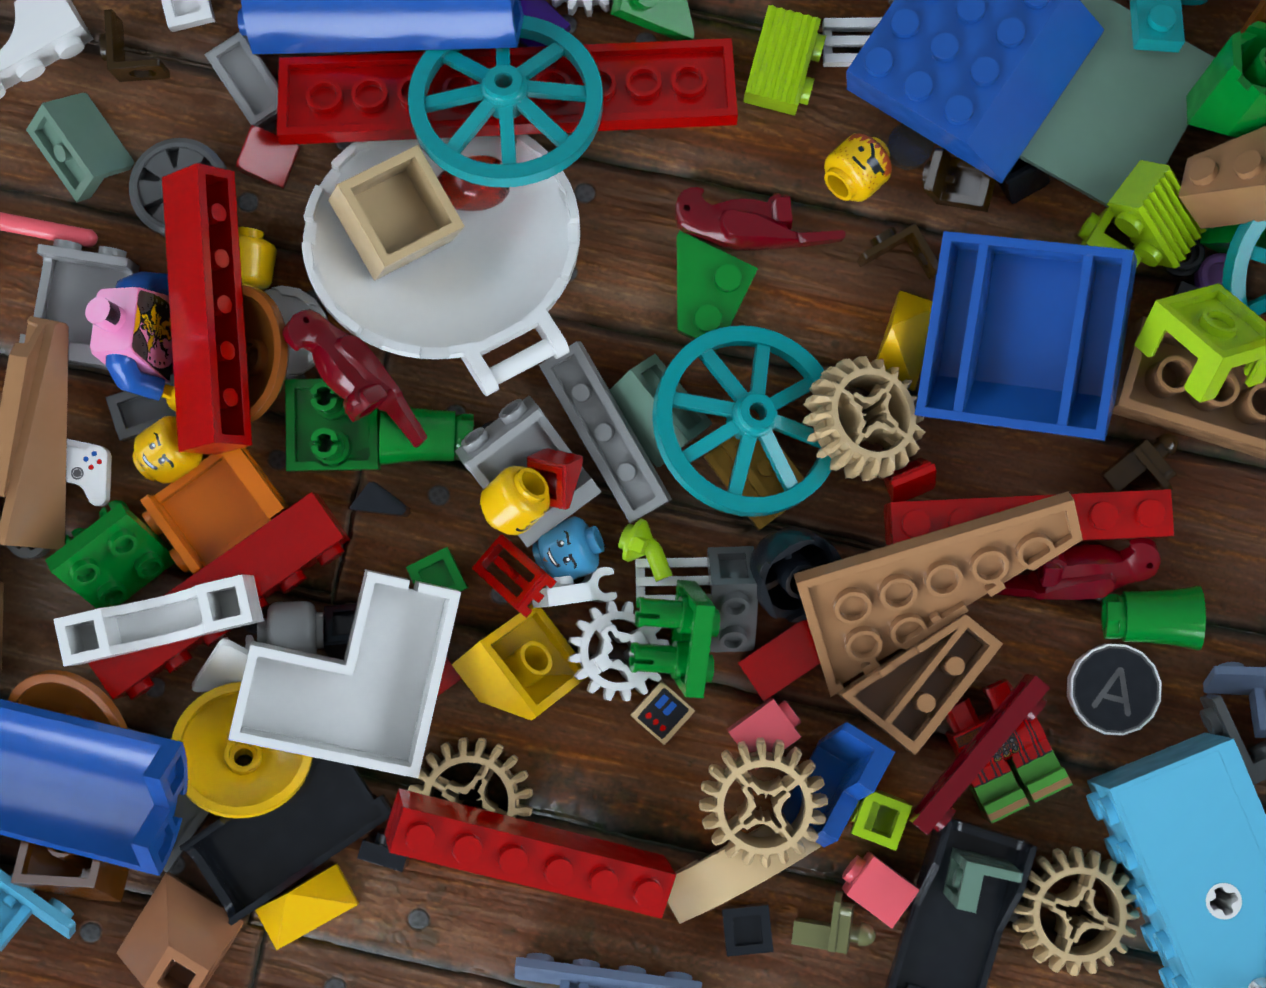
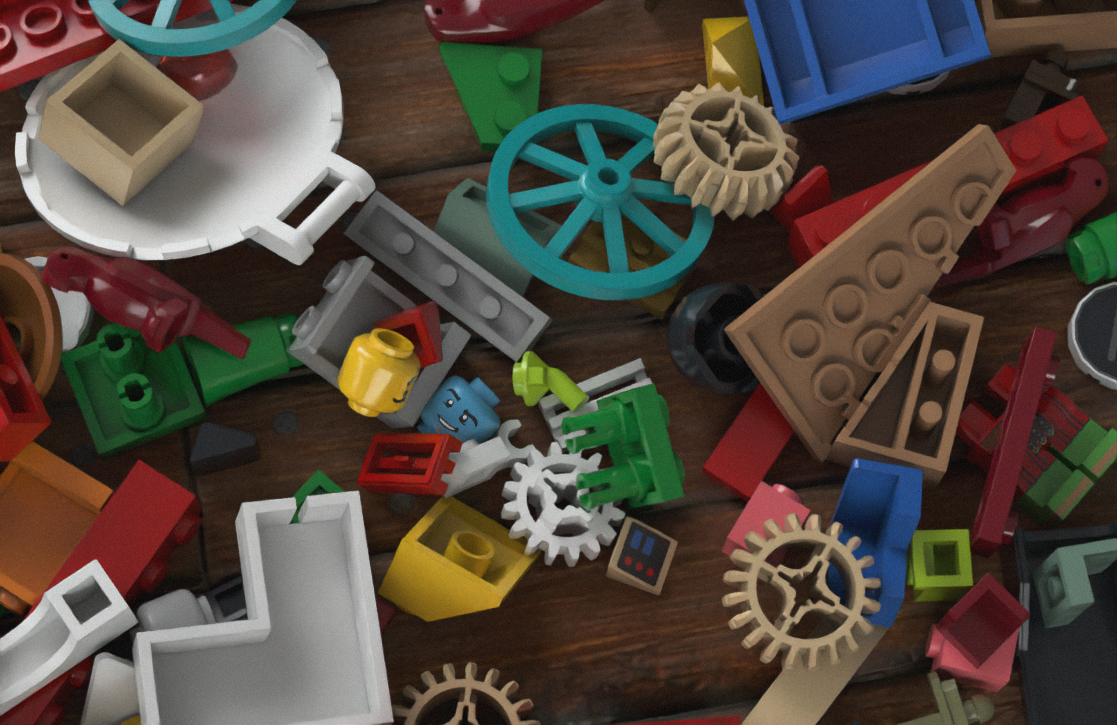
camera: 30 degrees left, 15 degrees down
(734, 596) = (674, 380): dark grey bracket -> none
(888, 880) = (982, 620): none -> dark red panel

